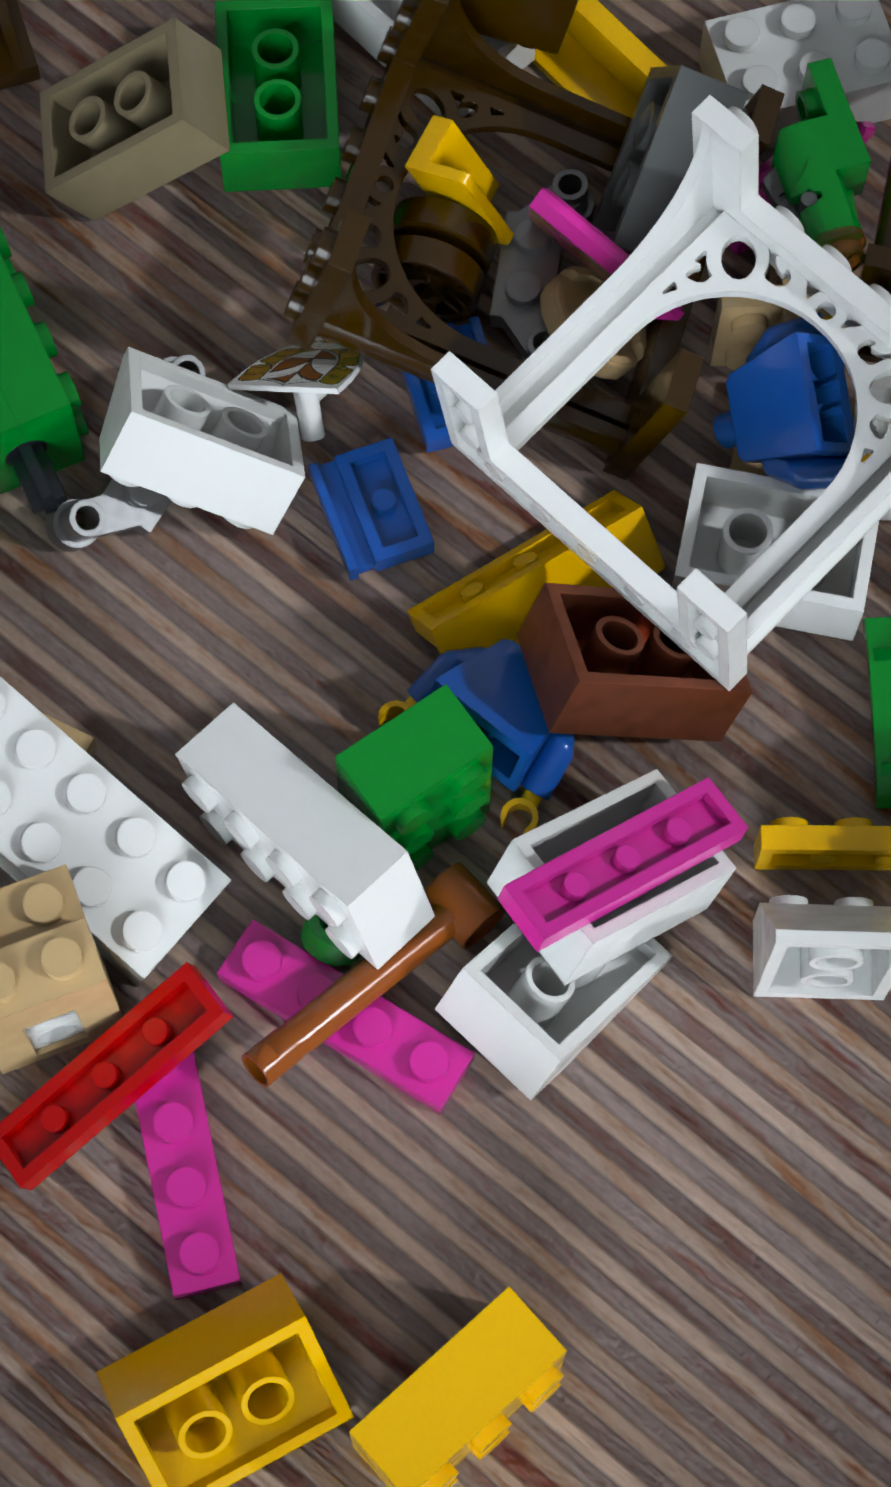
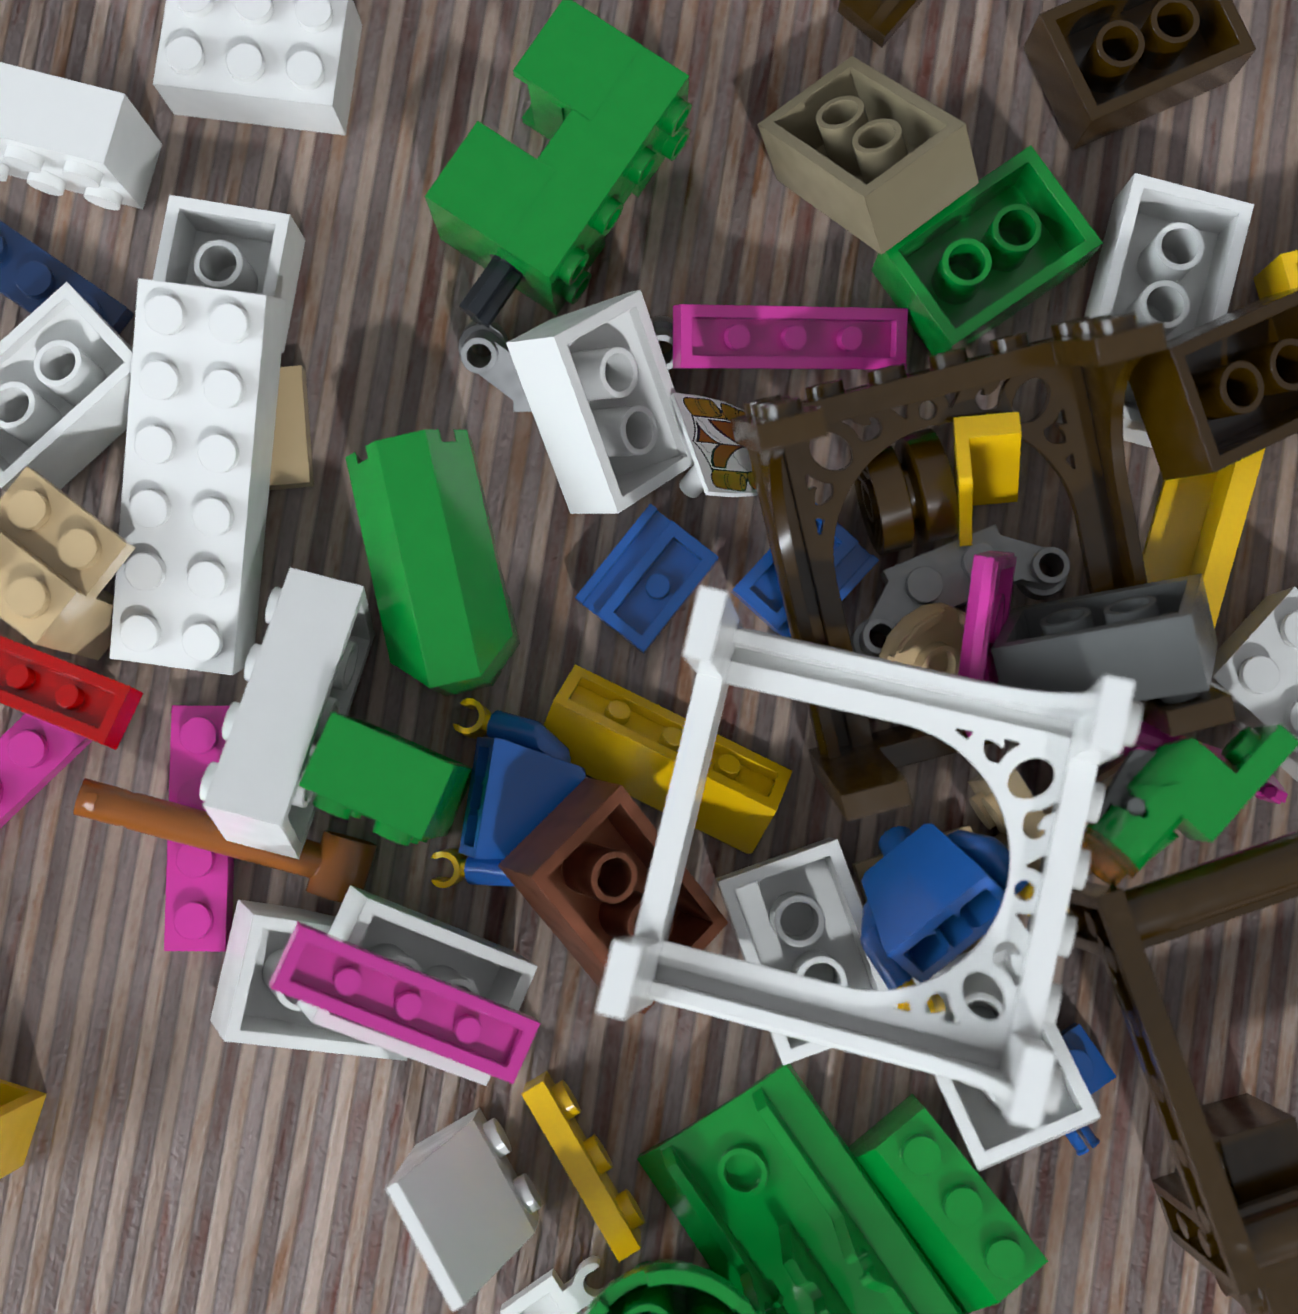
camera: 60 degrees right, 15 degrees up
(219, 642) = (434, 560): none -> green brick
(242, 273) = (788, 337): none -> dark pink plate

